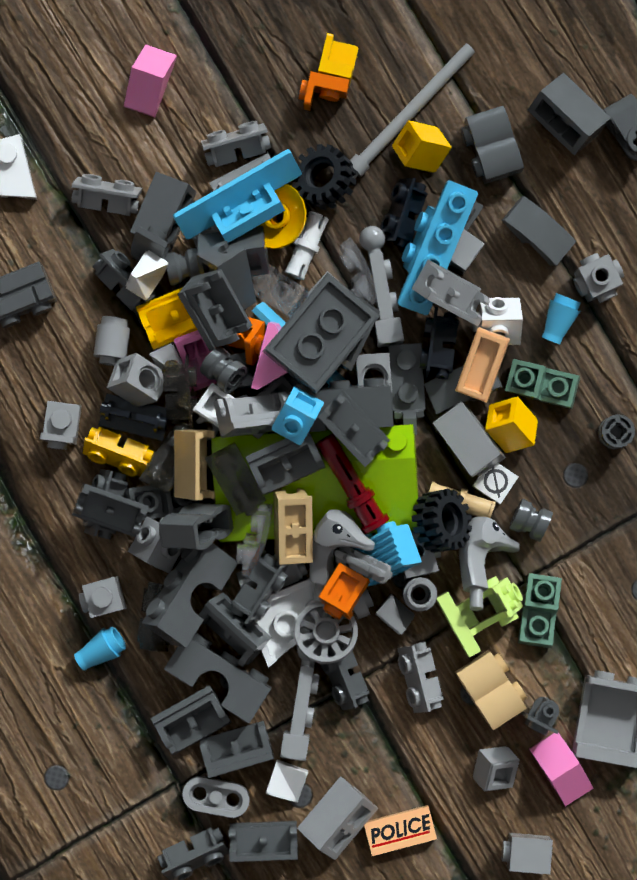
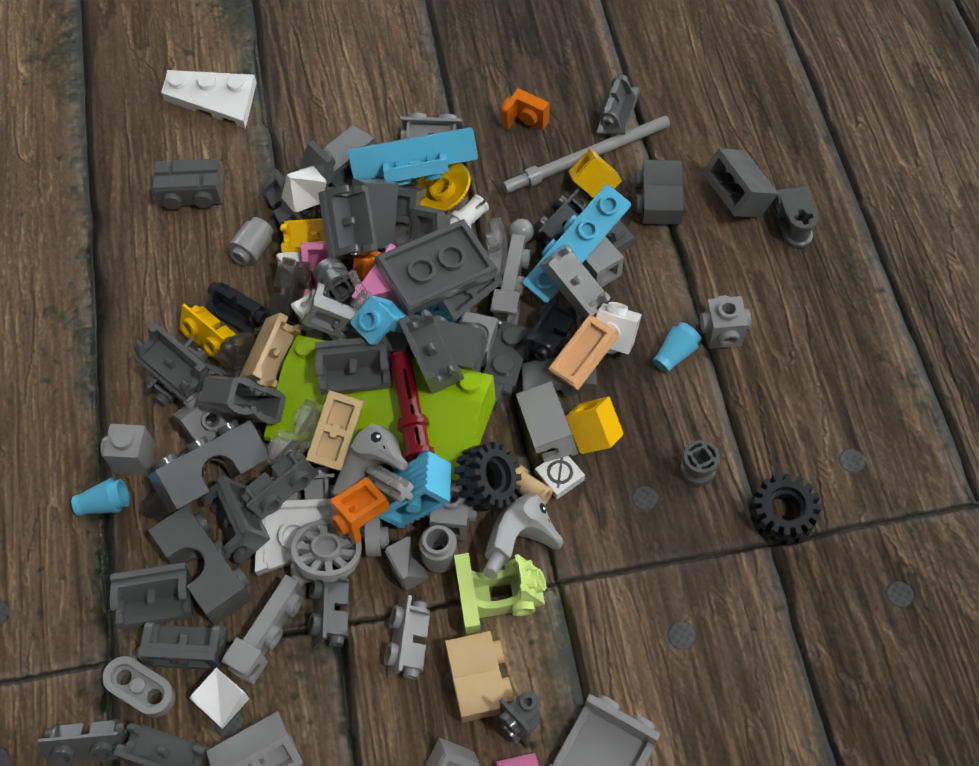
camera: 25 degrees right, 25 degrees down
(61, 424) = (171, 296): light grey bracket -> none
(93, 191) = (293, 129): light grey hinge -> none
(136, 380) = (254, 273): light grey brick -> none
(149, 80) = (378, 69): bright pink slope -> none
(236, 480) = (299, 369): clear smoke hinge -> none
(268, 390) = (363, 294): none -> clear hand
(285, 271) = (427, 220): none -> dark grey tile
(338, 58) = (540, 88): yellow panel -> none
(338, 184) = (497, 169): black tyre -> none
(417, 52) = (619, 107): none -> dark grey hinge
(530, 520) = (579, 516): dark grey wheel -> none
(538, 229) = (683, 270): dark grey slope -> none
(539, 610) = (560, 615): sand green slope -> none
(542, 383) = (635, 400): sand green slope -> none

